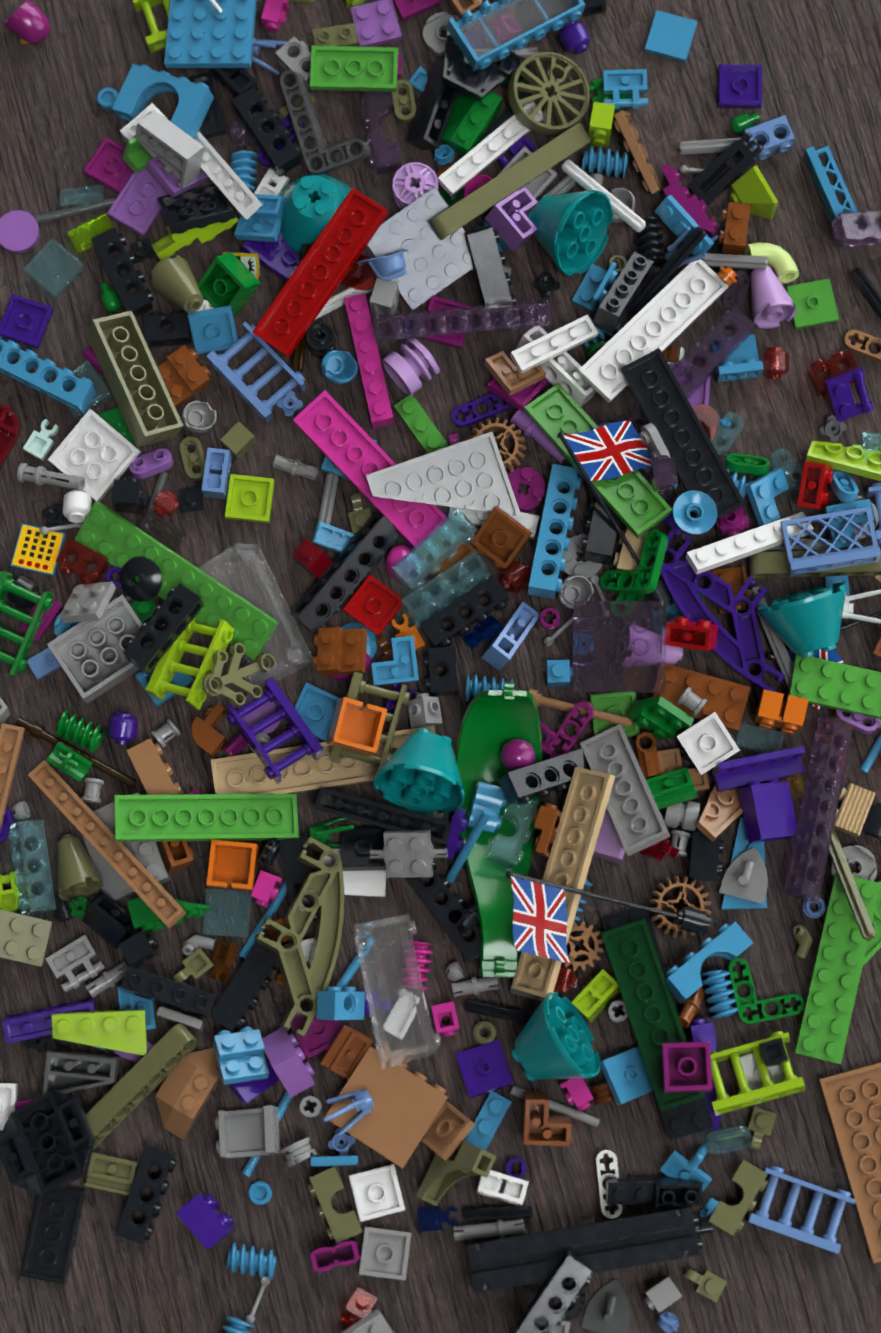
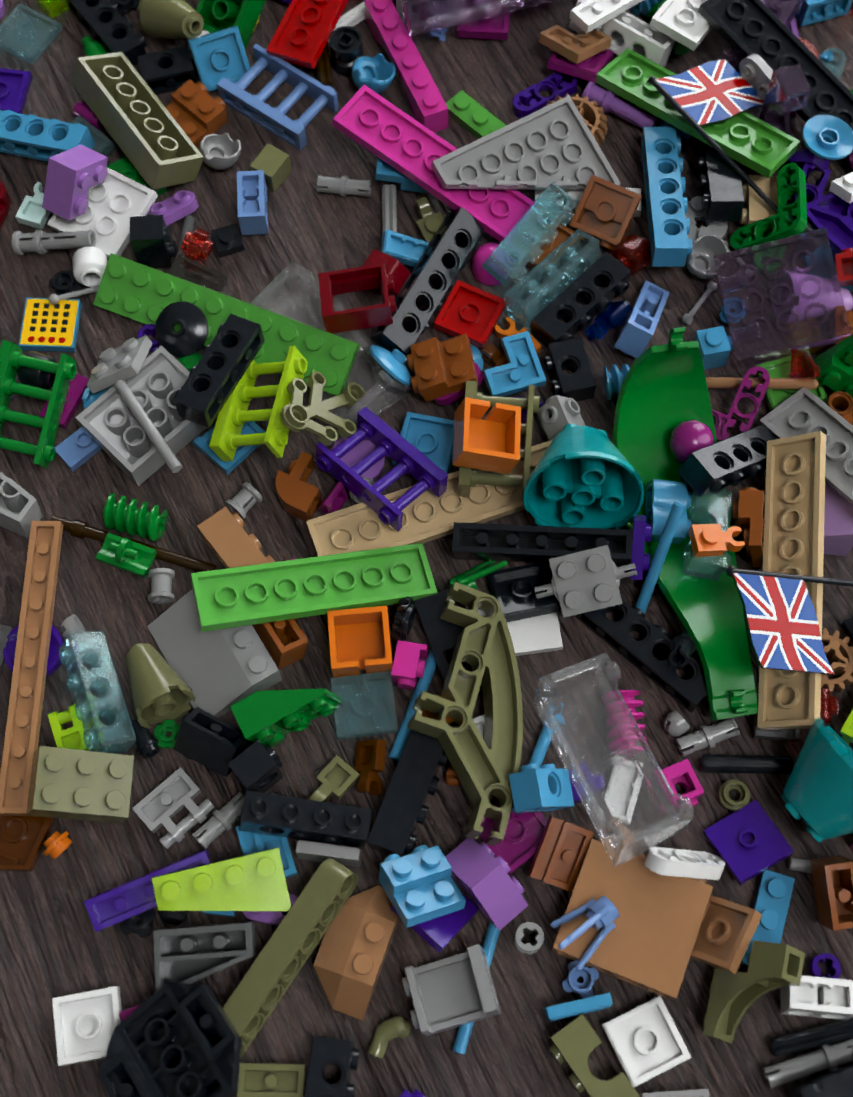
camera: 15 degrees left, 10 degrees down
(73, 433) = (69, 179): none -> medium lavender brick
(85, 558) = (108, 320): clear red brick -> none
(100, 661) = (148, 426): none -> light grey bar
(104, 842) = (201, 647): medium nougat plate -> none
(123, 727) = (188, 503): dark purple head -> none
(193, 459) = (223, 197): olive plate -> none
(196, 942) = (330, 749): light grey arm -> none
(199, 1150) = (387, 1031): none -> olive arm
(249, 498) = (296, 226): lime plate -> none
(260, 1193) = (484, 1074): dark azure tile -> none
(265, 567) = (356, 280): none -> dark red window
(290, 410) = (320, 128): medium blue plate -> none
(298, 1152) = (526, 1005): light grey wheel -> none
(300, 641) = (392, 362): none -> dark azure dish
(407, 368) = (456, 56): lavender wheel -> none
(431, 1218) = (730, 1063): clear blue plate -> none
(432, 1076) = (684, 863): none -> white beam
(507, 841) = (712, 541): none -> orange plate
(536, 492) = (626, 158): magenta plate -> none
(554, 612) = (684, 286): magenta bush -> none
(621, 707) = (803, 365): none -> clear red tile

